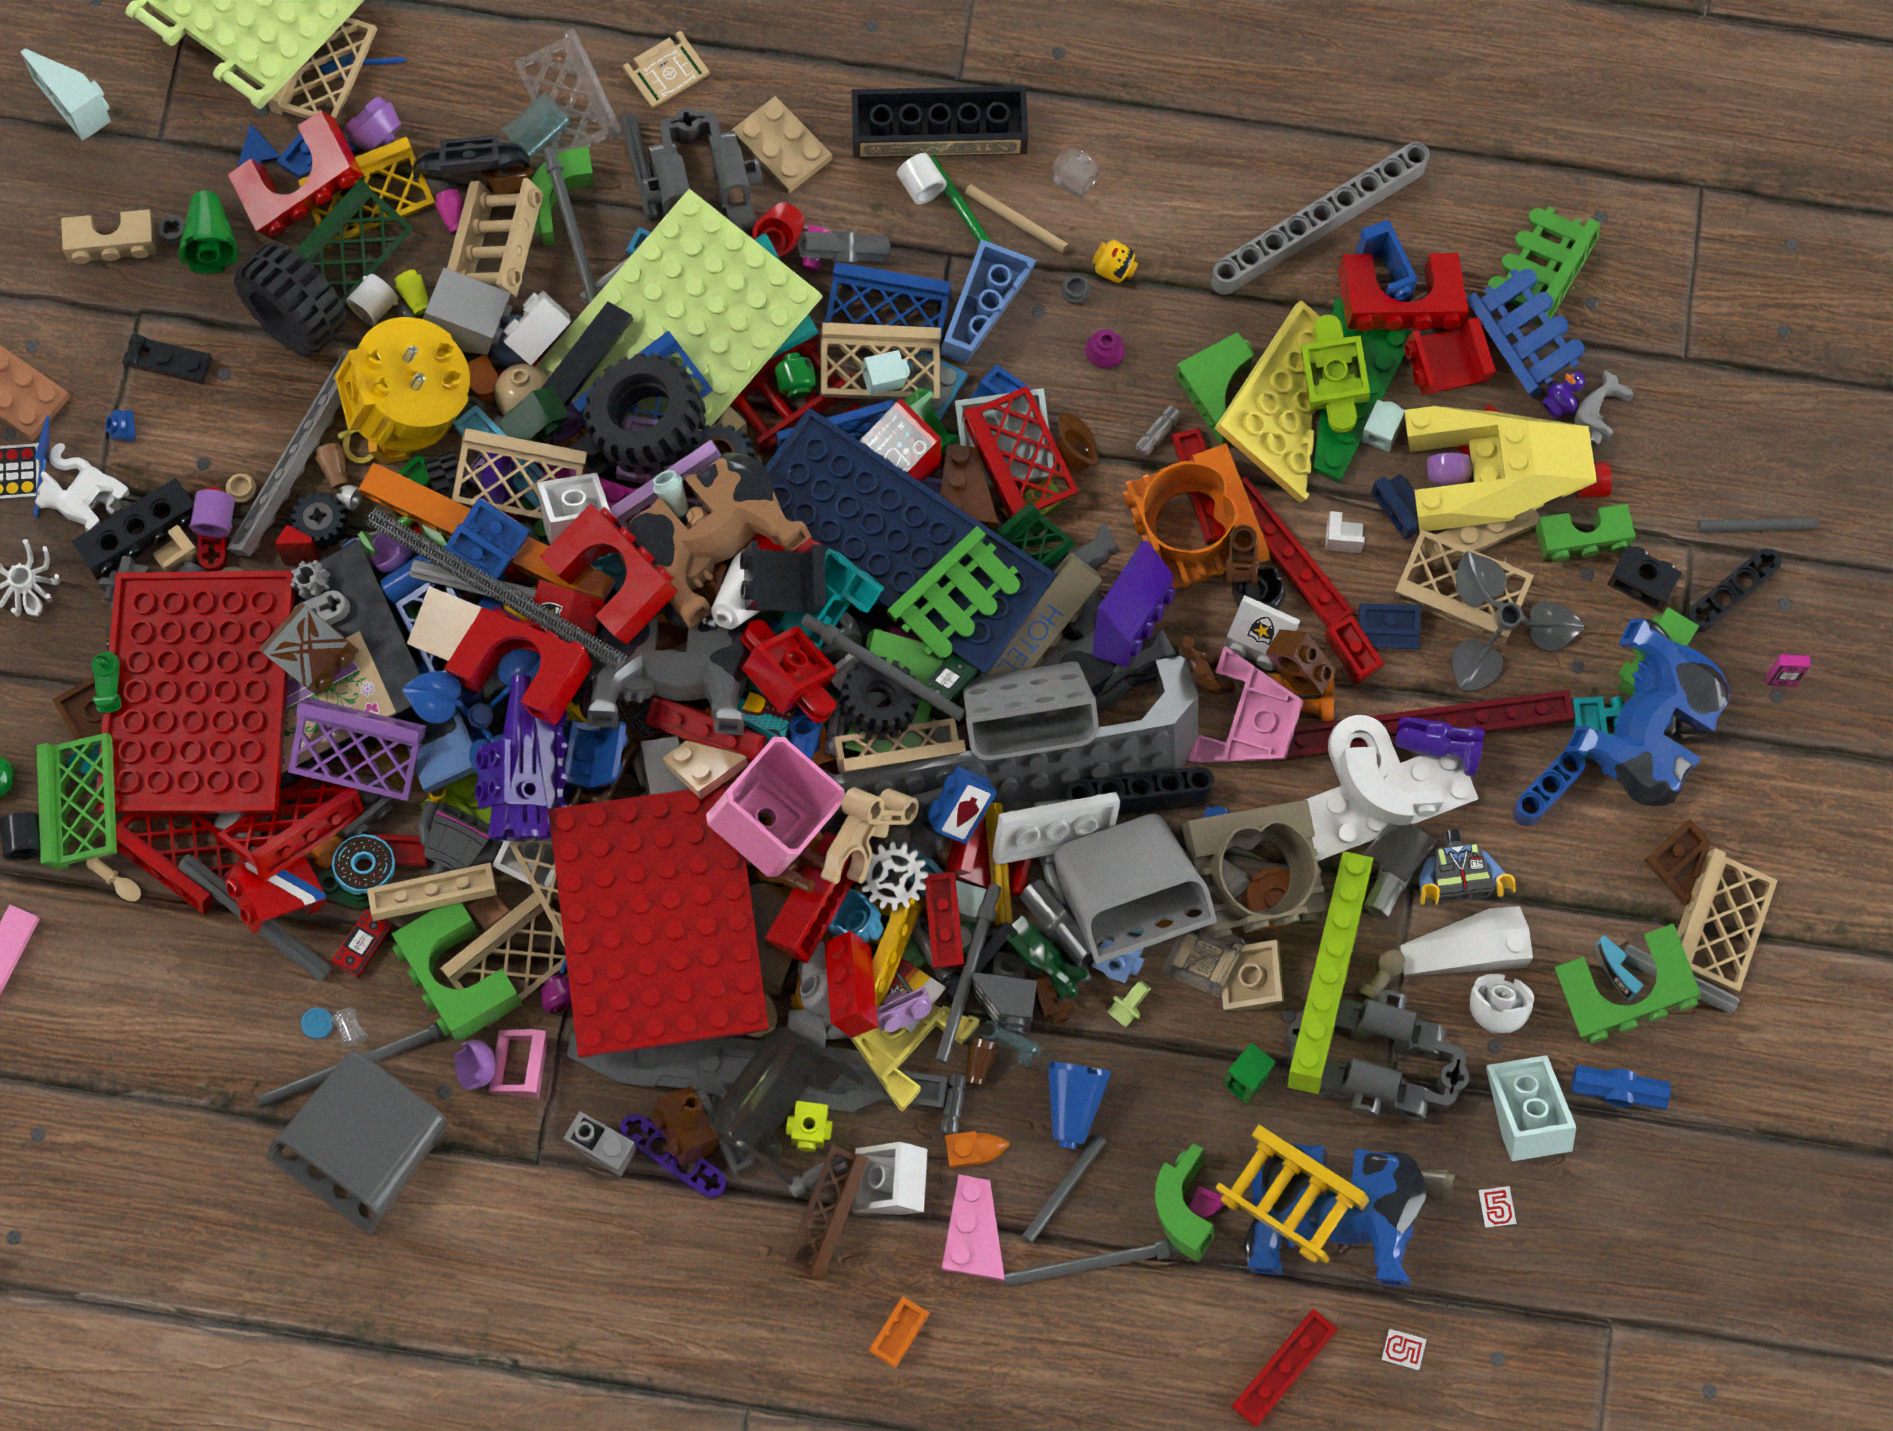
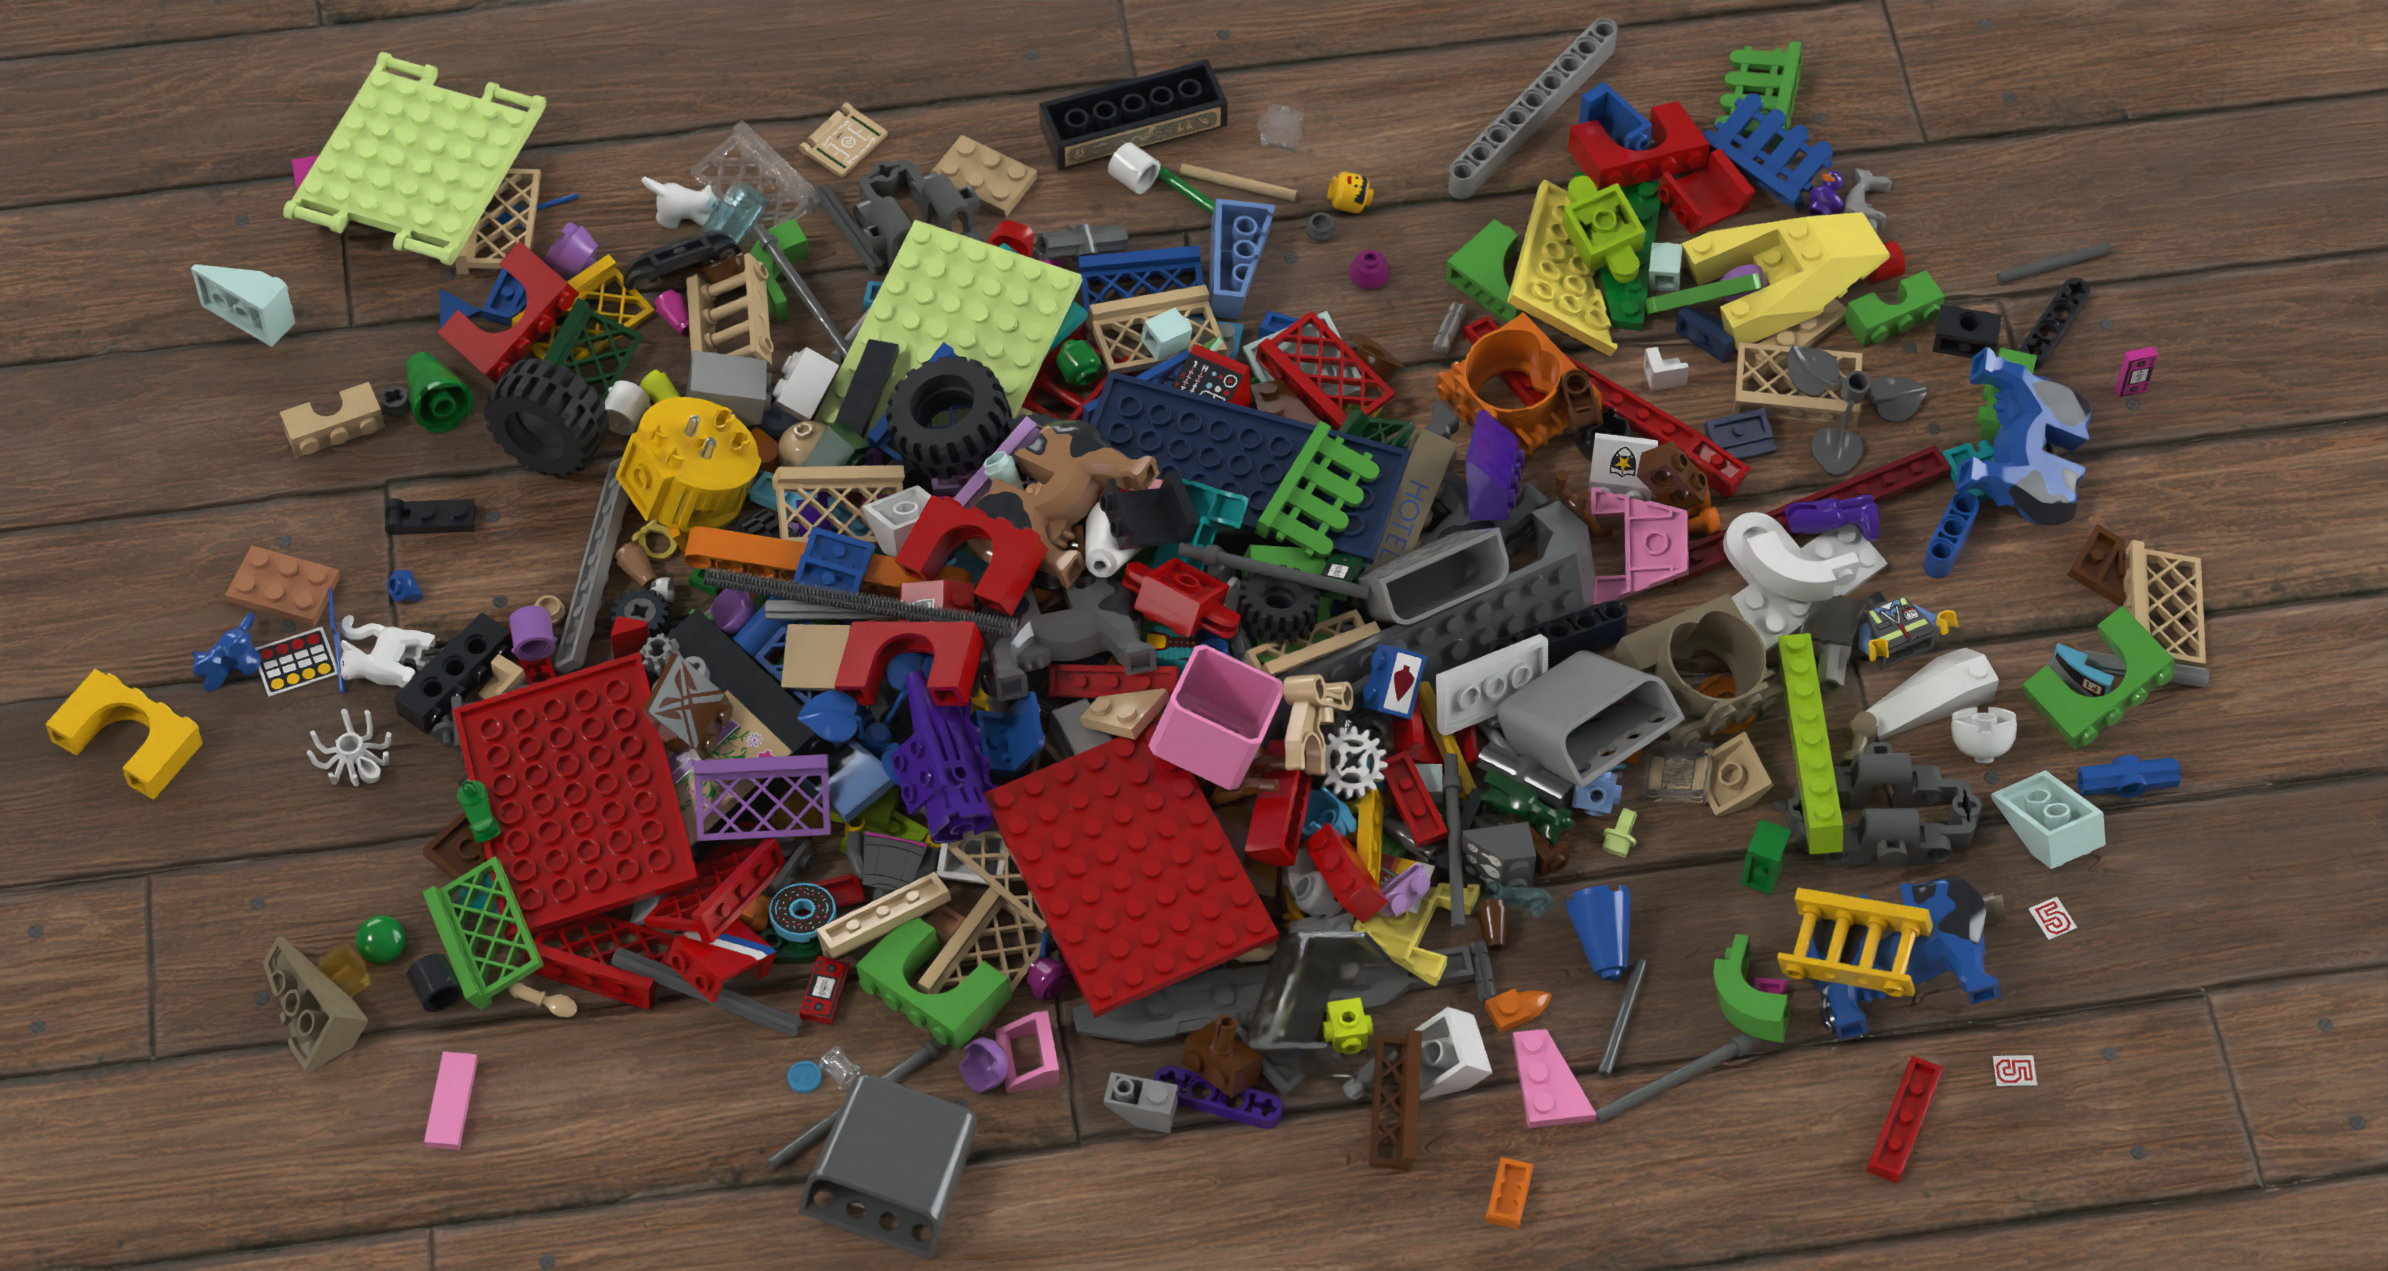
camera: 15 degrees left, 15 degrees down
(490, 96) = (681, 203): none -> white animal
(1405, 469) = (1703, 293): none -> bright green beam

